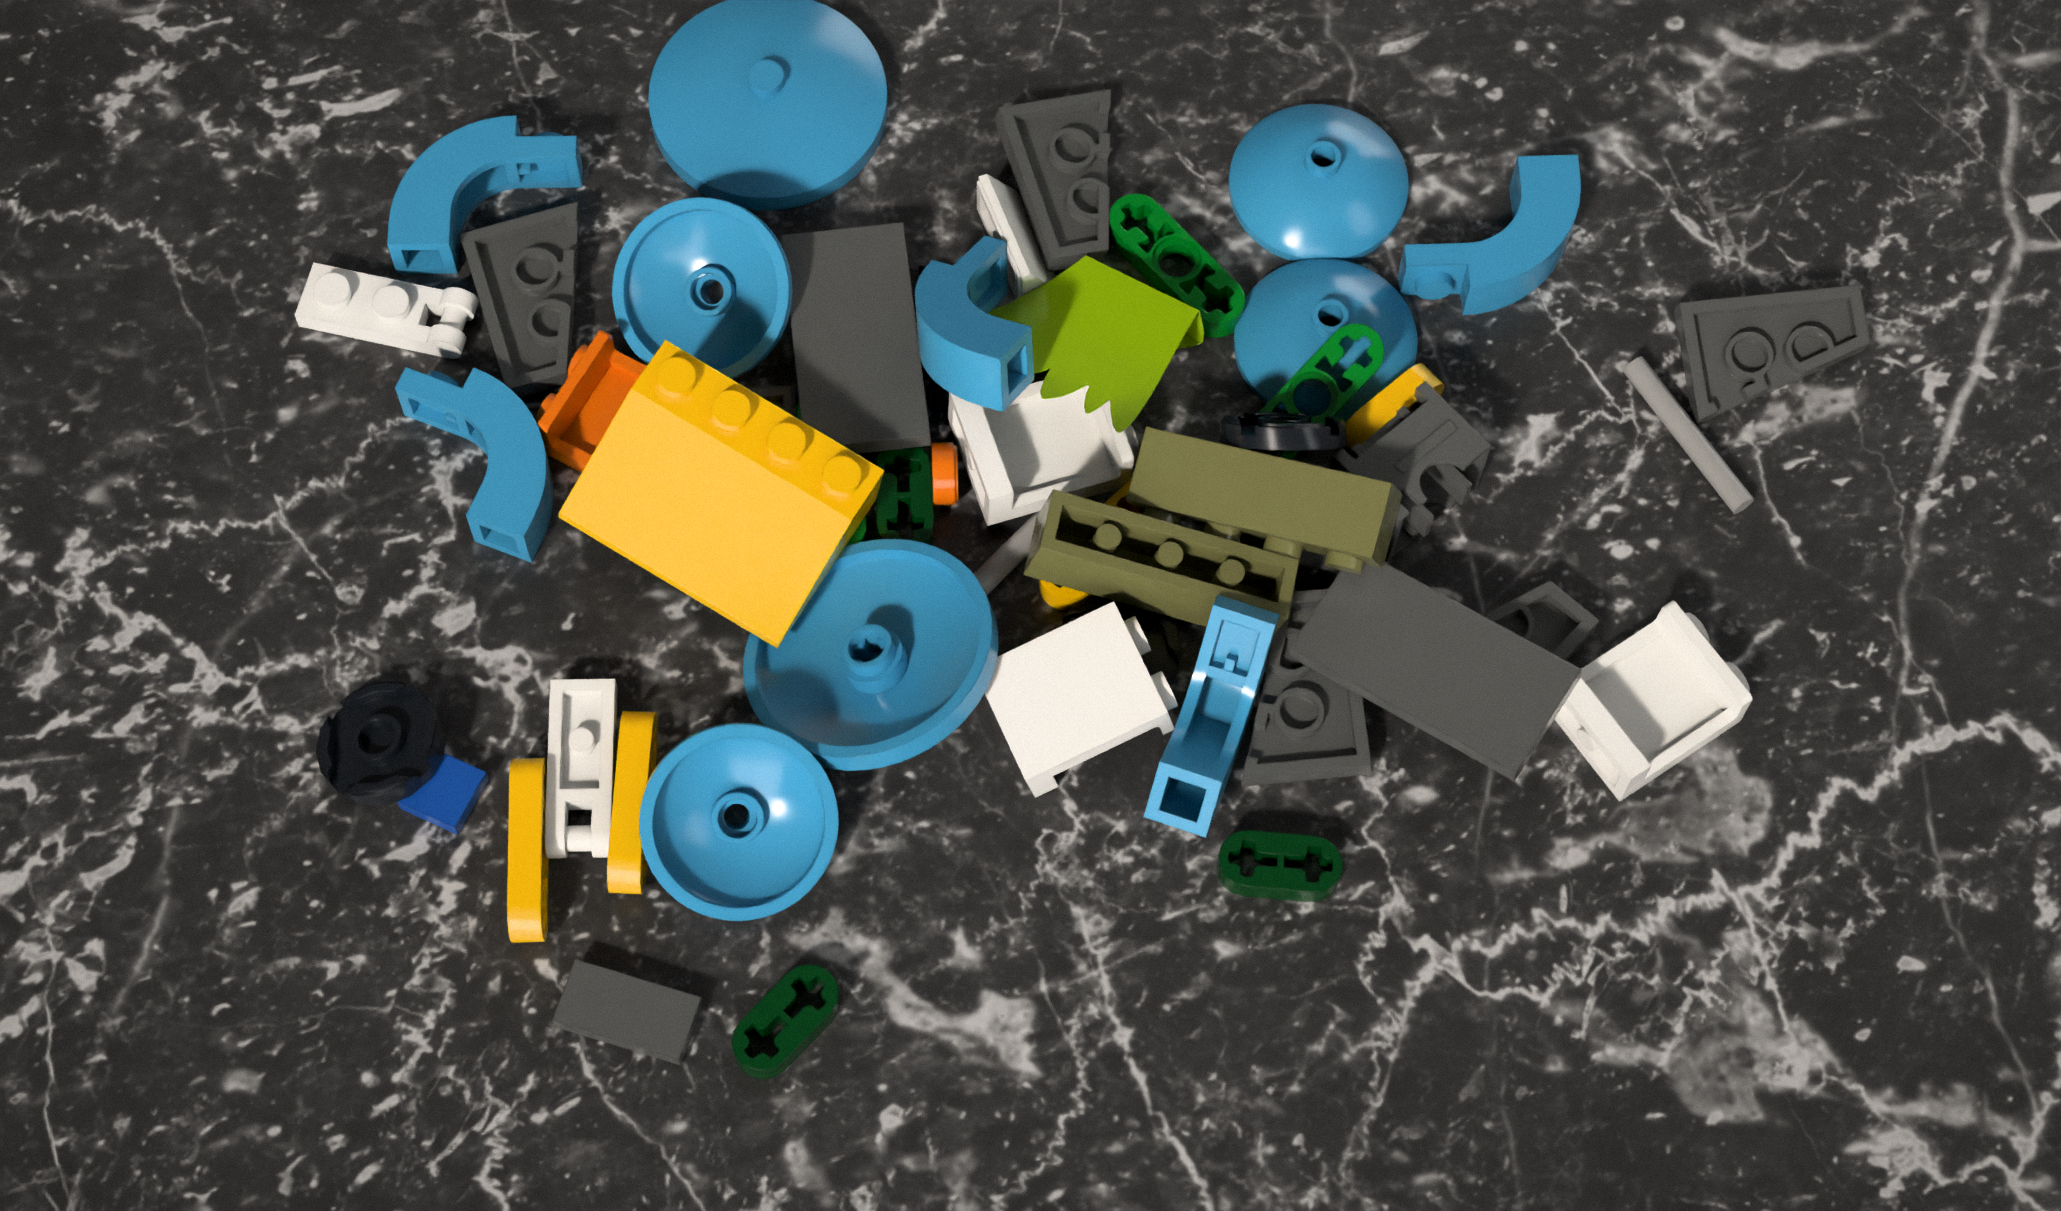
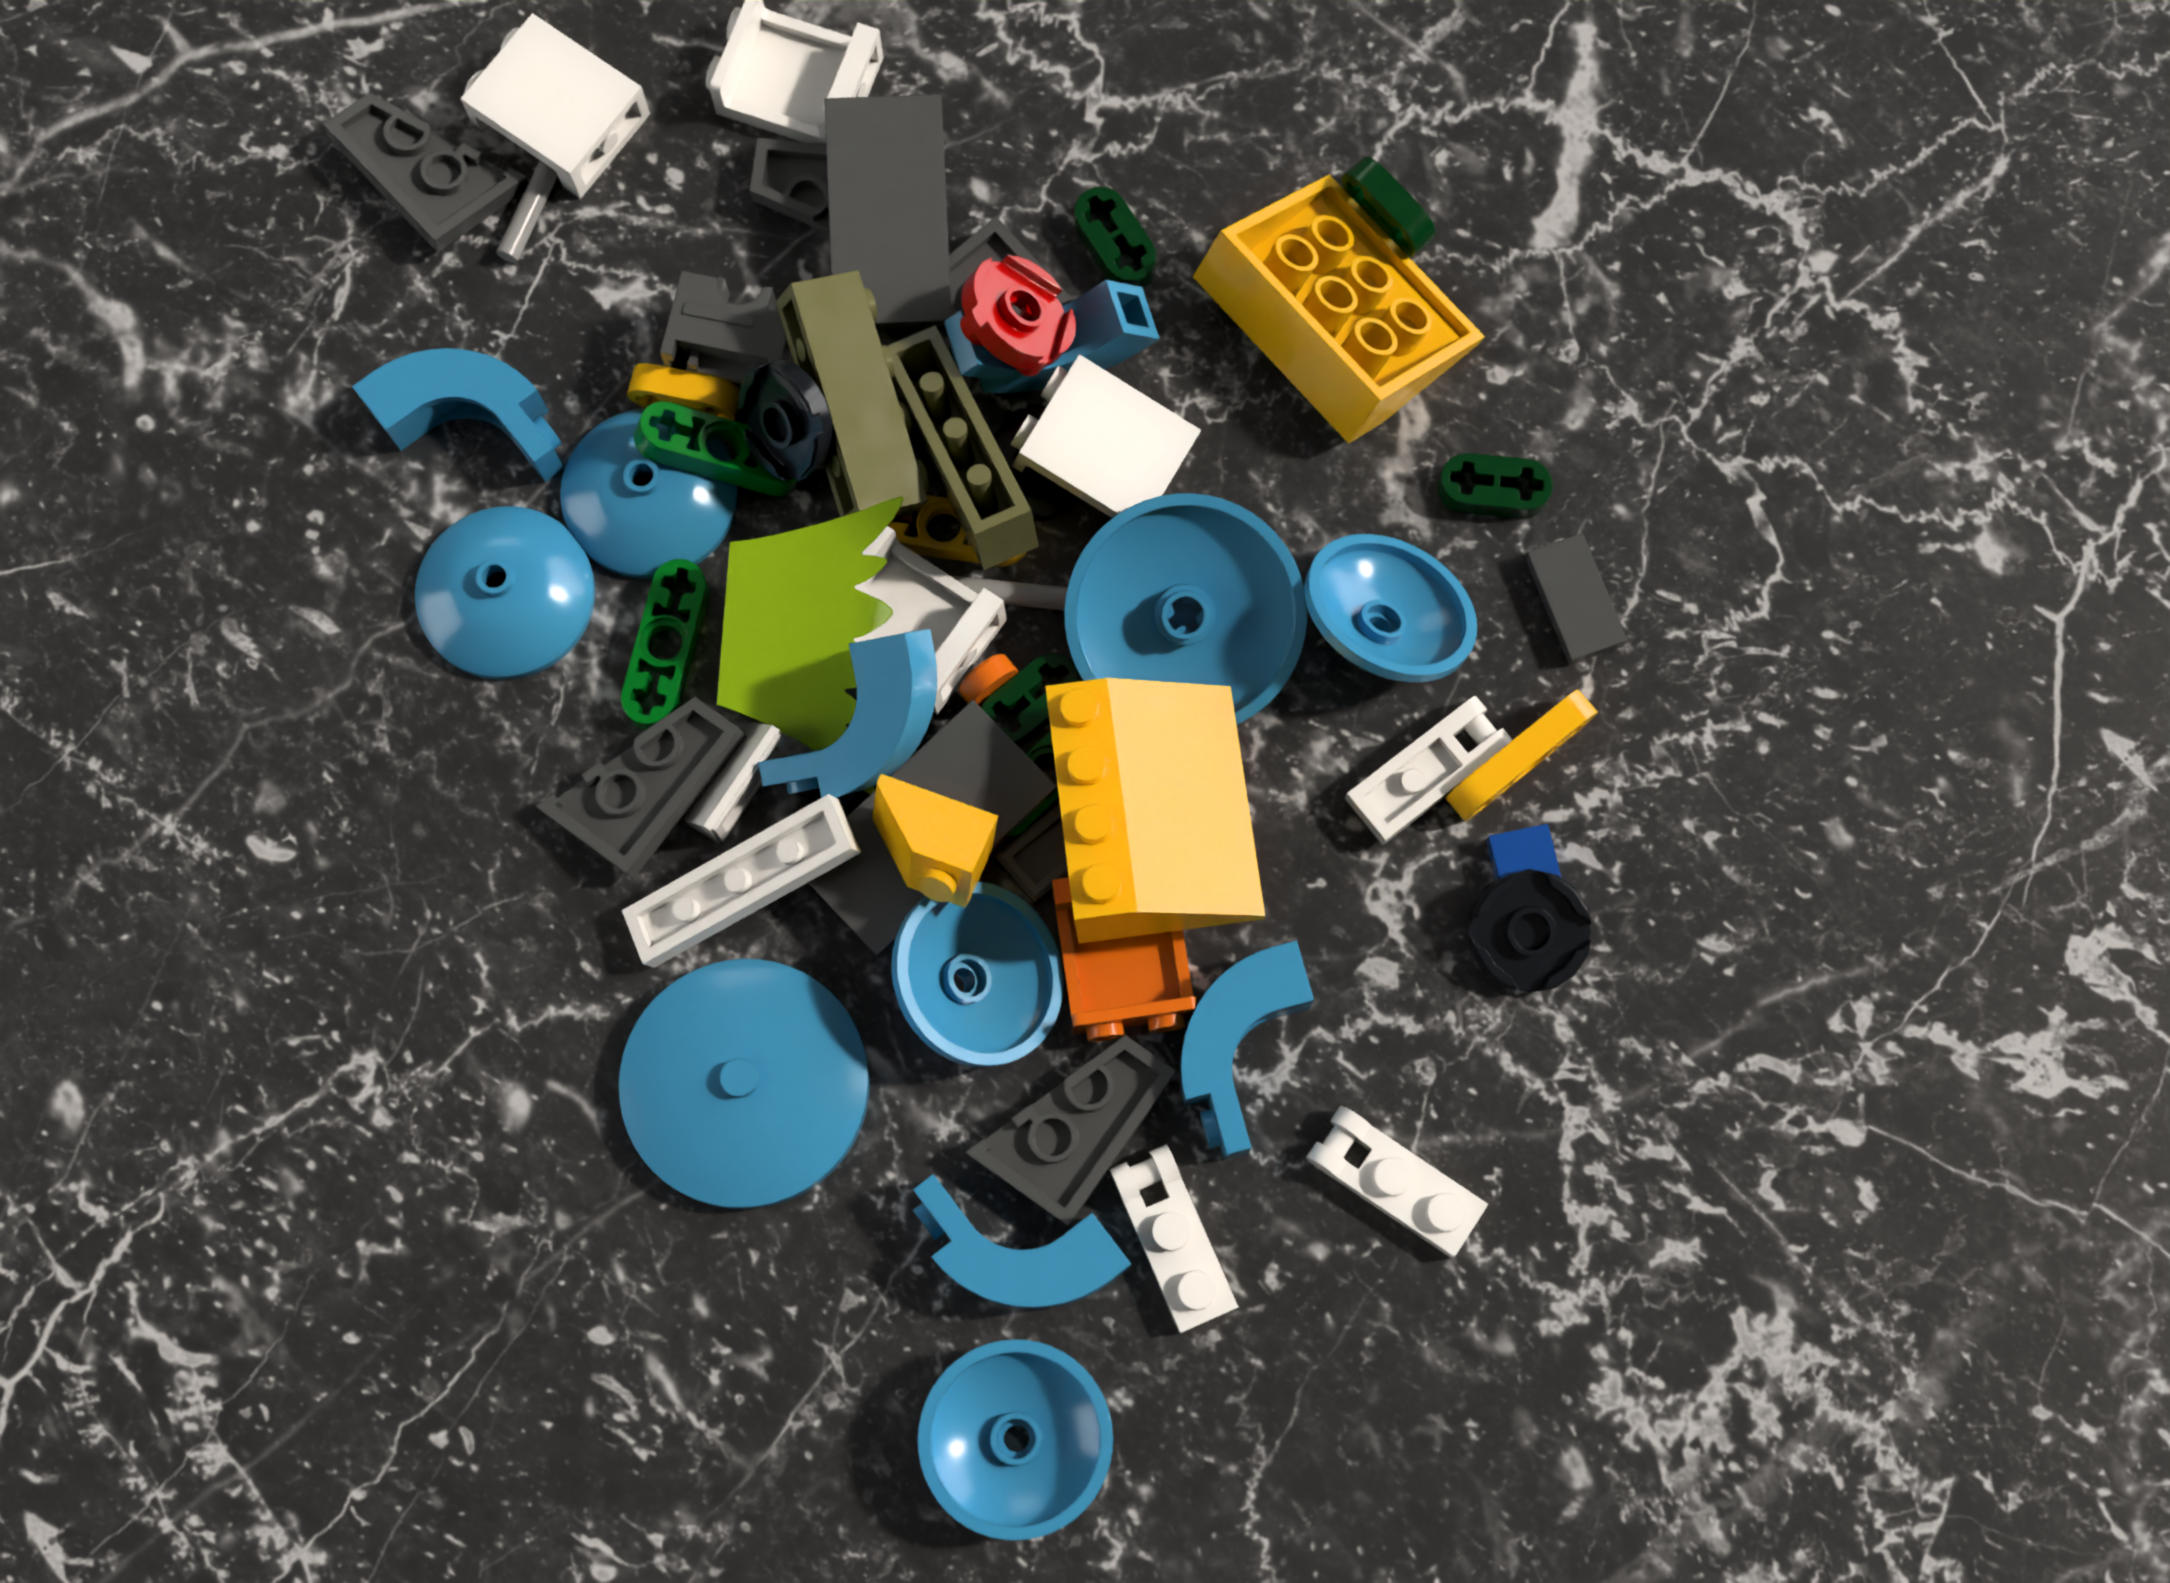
camera: 125 degrees left, 10 degrees up
(282, 500) = (1399, 1183): none -> white plate
(331, 63) = (965, 1448): none -> dark azure dish
(633, 769) = (1425, 710): yellow beam -> none
(823, 306) = (933, 839): none -> yellow slope
(919, 176) = (741, 881): none -> white plate
(1063, 1010) = (1336, 305): none -> yellow slope
(1125, 1126) = (1389, 205): none -> dark green beam
(1234, 713) = (1025, 340): none -> red plate
(1752, 477) = (556, 103): none -> white panel

